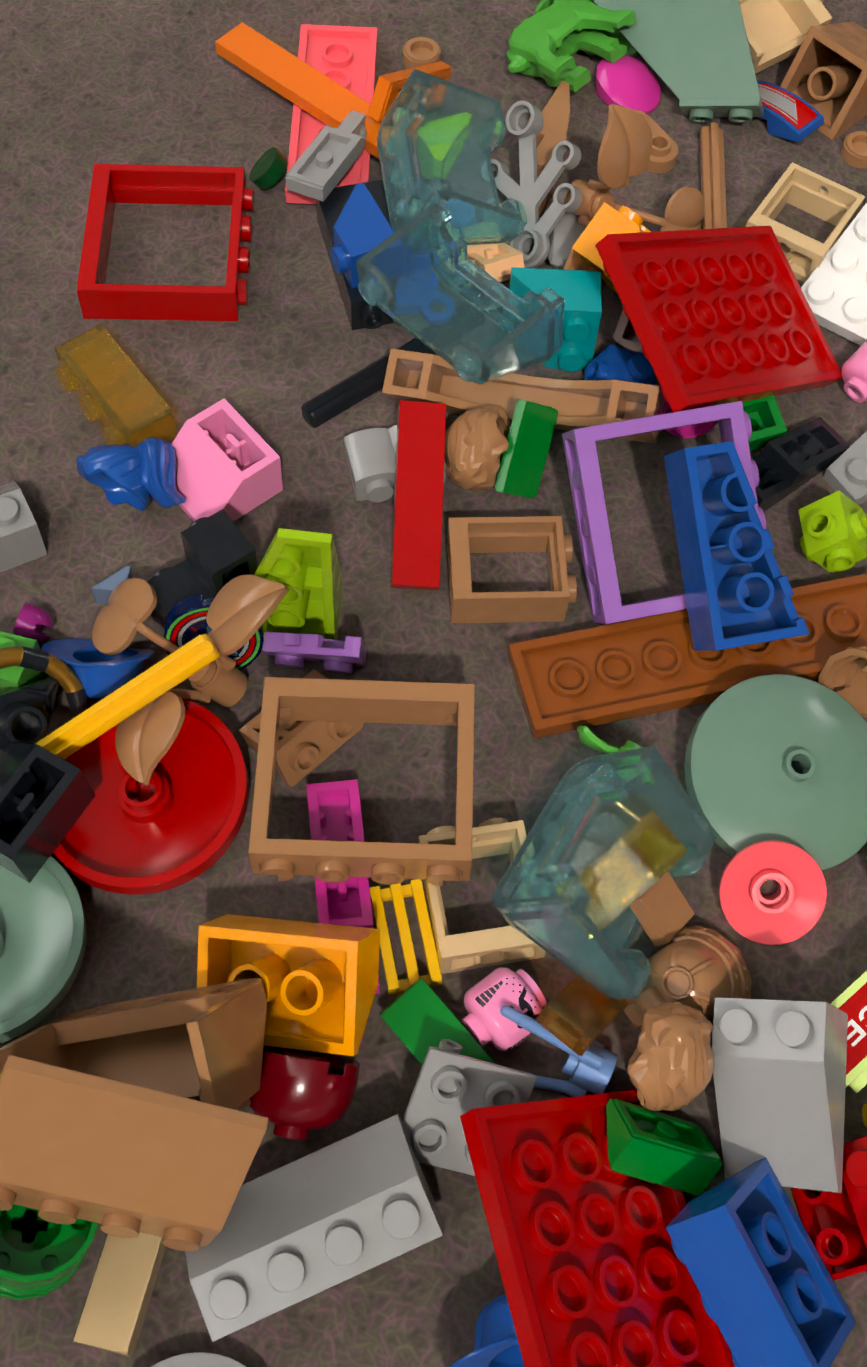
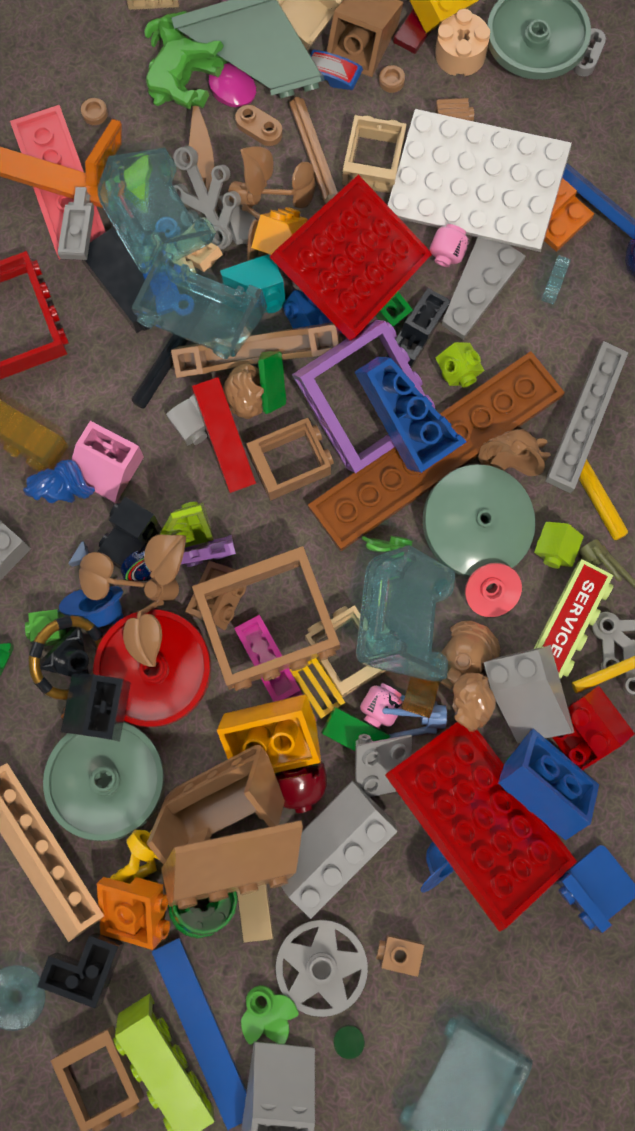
camera: 15 degrees left, 15 degrees up
(30, 622) = (45, 595): magenta hinge -> none
(131, 697) = (125, 627): yellow axle -> none
(268, 169) = (38, 240): dark green tile -> none
(357, 232) = (121, 279): blue slope -> none
(629, 868) = (417, 613): clear yellow slope -> none
(659, 1148) = (482, 744): green slope -> none
(662, 910) = (440, 621): medium nougat tile -> none

